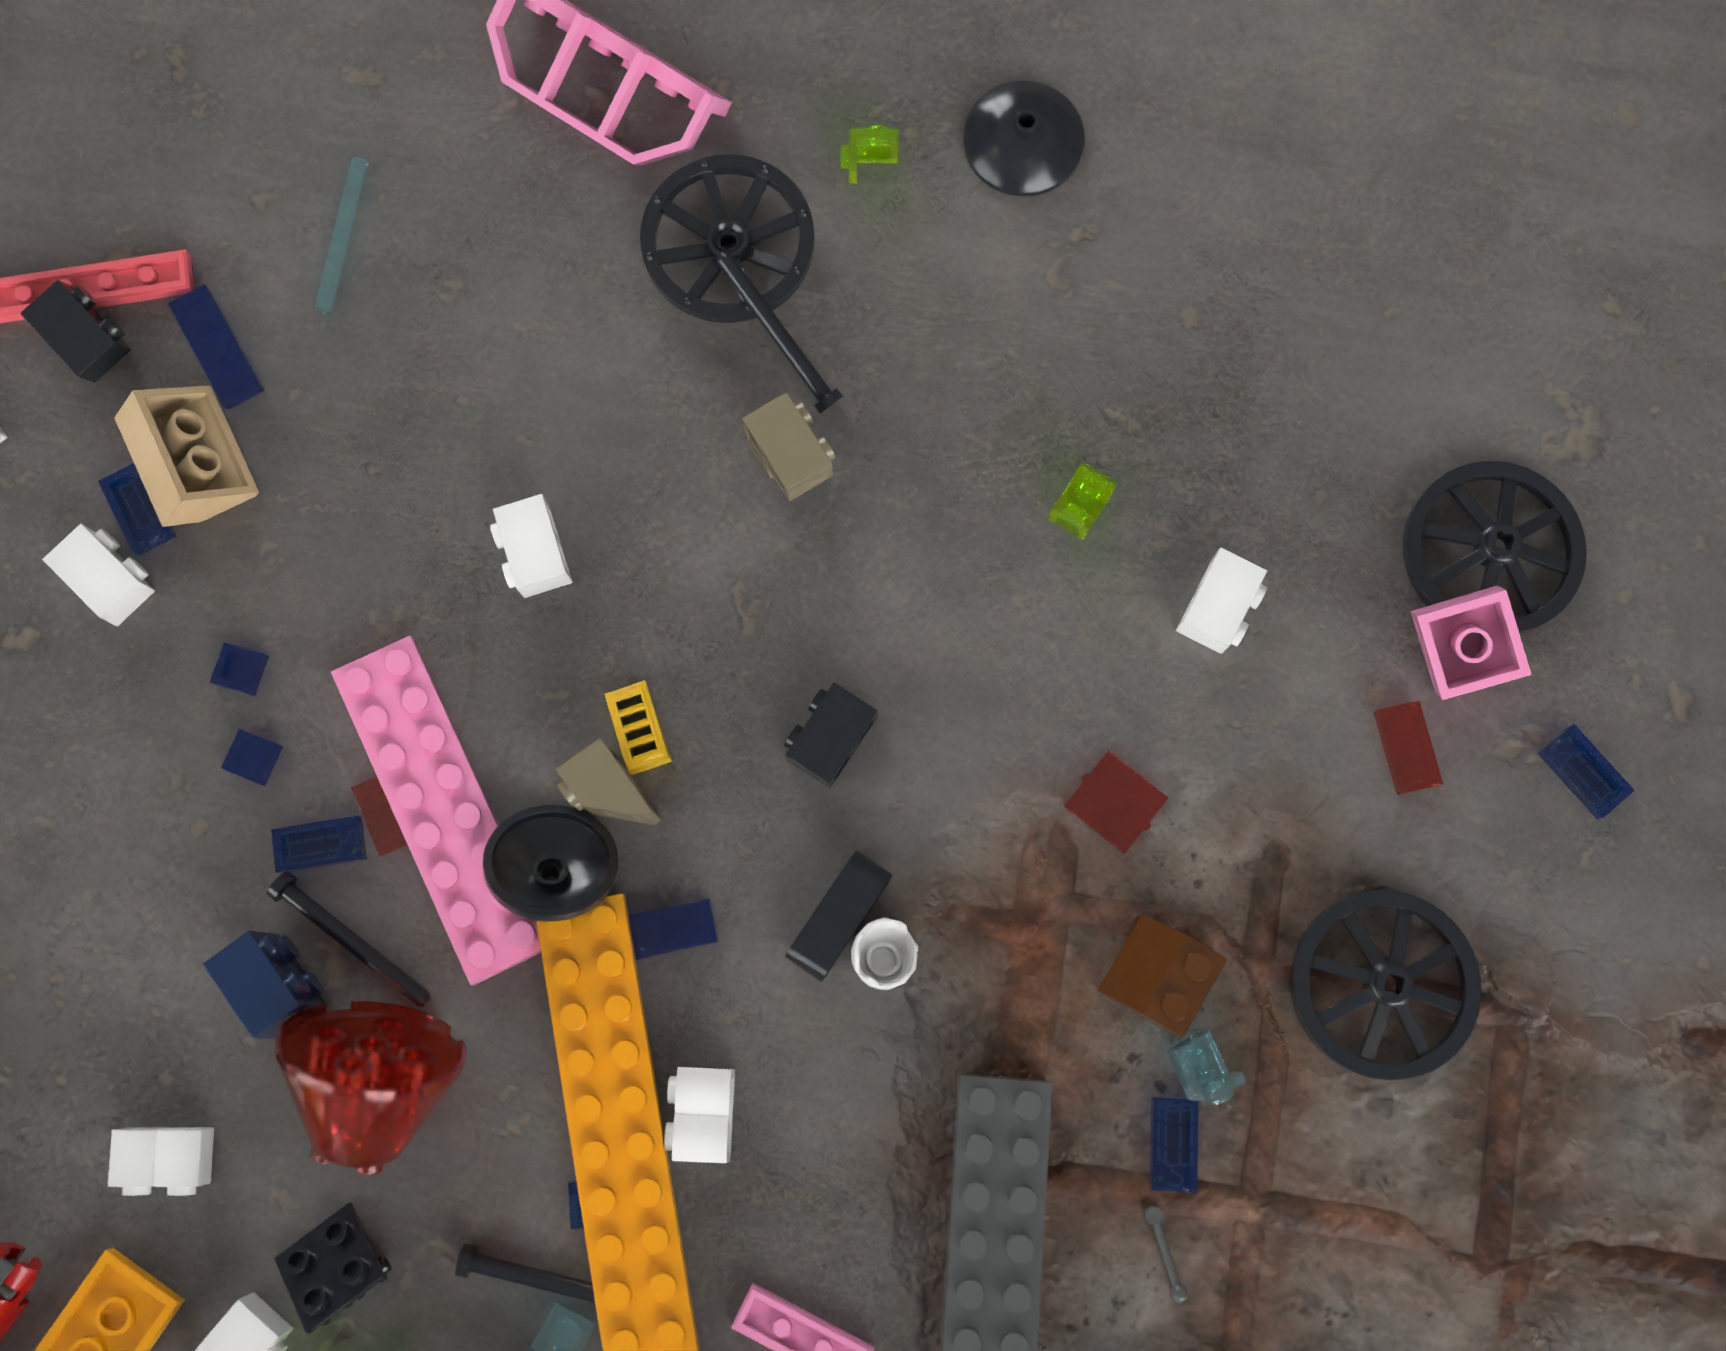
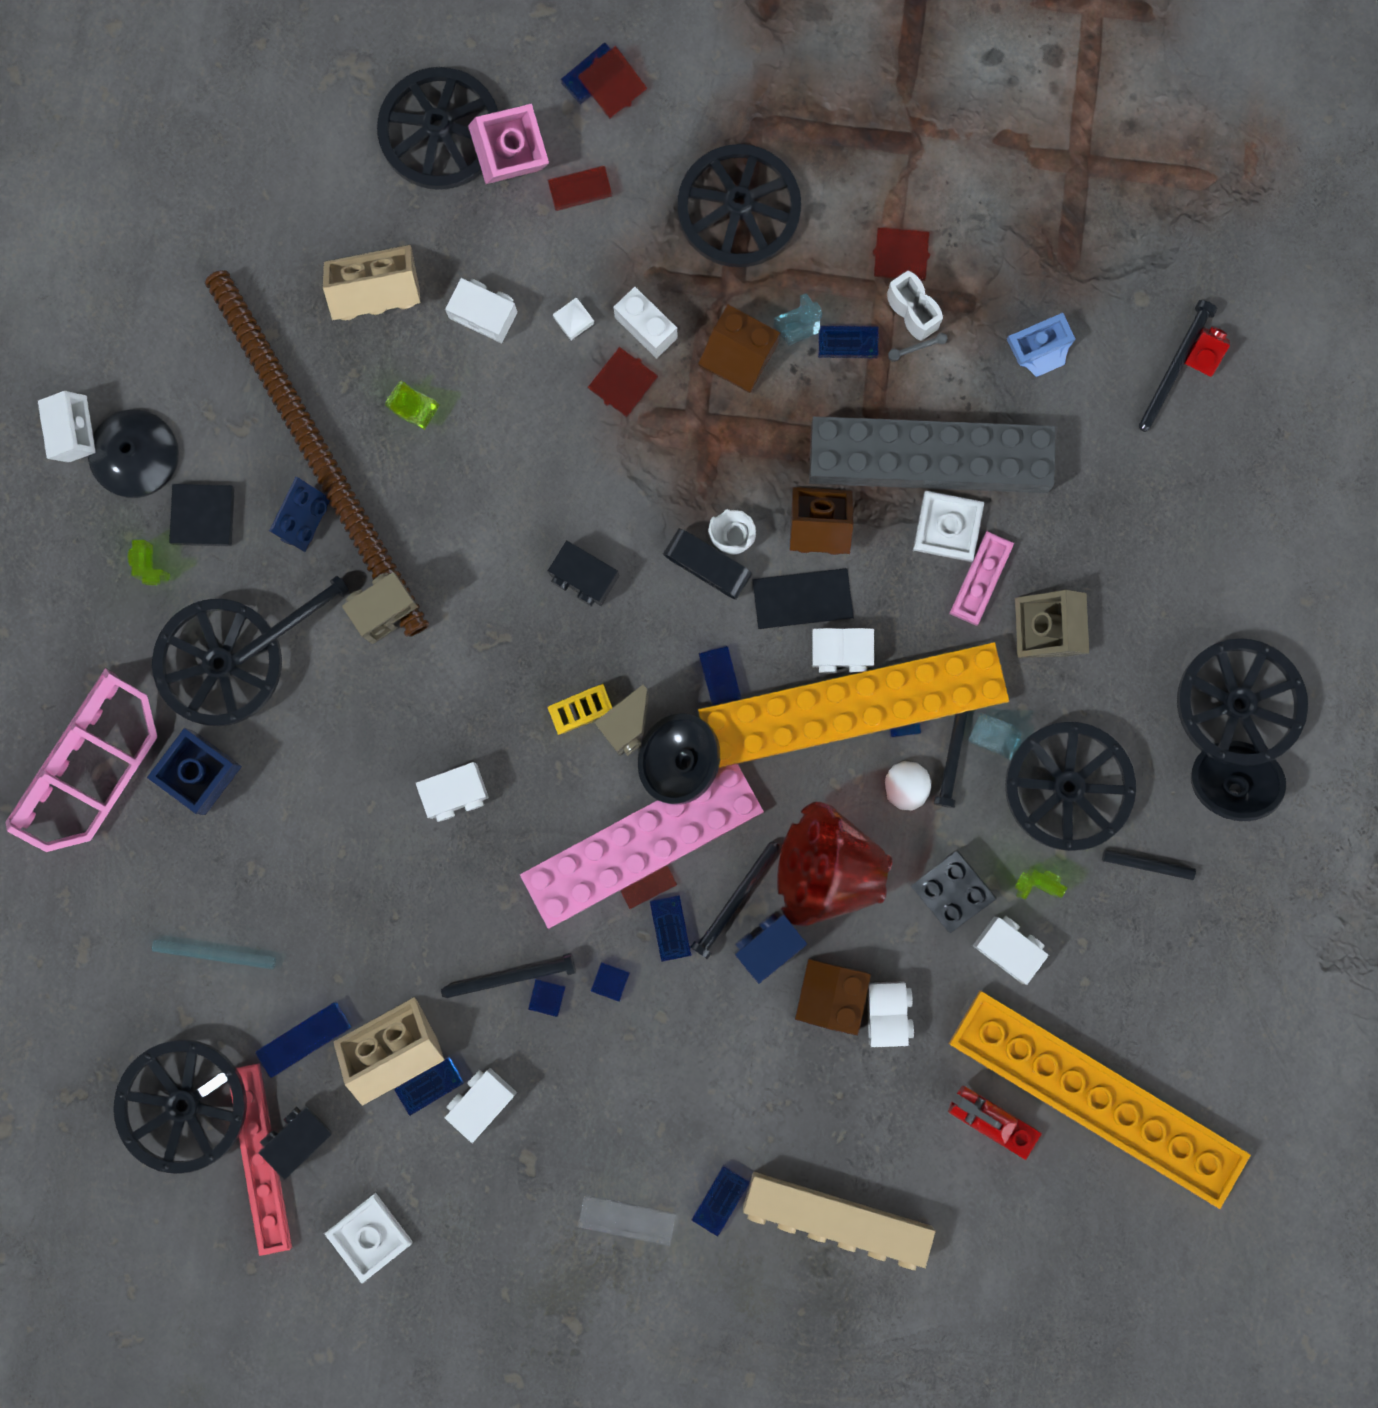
camera: 90 degrees left, 5 degrees up
(136, 187) = (172, 1106): none -> black wheel
(193, 1077) = (833, 997): none -> reddish brown slope
(280, 696) = (566, 964): none -> black bar
(495, 1204) = (907, 785): none -> white hair
(579, 207) = (194, 772): none -> dark blue brick
(785, 1058) = (802, 598): none -> black sticker
(885, 1289) = (948, 526): none -> white tile
(898, 1090) = (821, 520): none -> reddish brown slope
(927, 346) = (299, 514): none -> dark blue hinge
(935, 224) = (201, 515): none -> black tile
(1039, 361) = (307, 436): none -> reddish brown piece
(1058, 49) = (66, 426): none -> white brick
(1203, 836) = (645, 322): none -> white brick
(1210, 733) = (573, 319): none -> white tile
(1237, 1244) = (919, 310): none -> white brick
(1261, 448) = (371, 283): none -> tan slope
(1313, 1235) = (901, 252): none -> clear red piece
(1572, 799) = (612, 82): none -> clear red piece

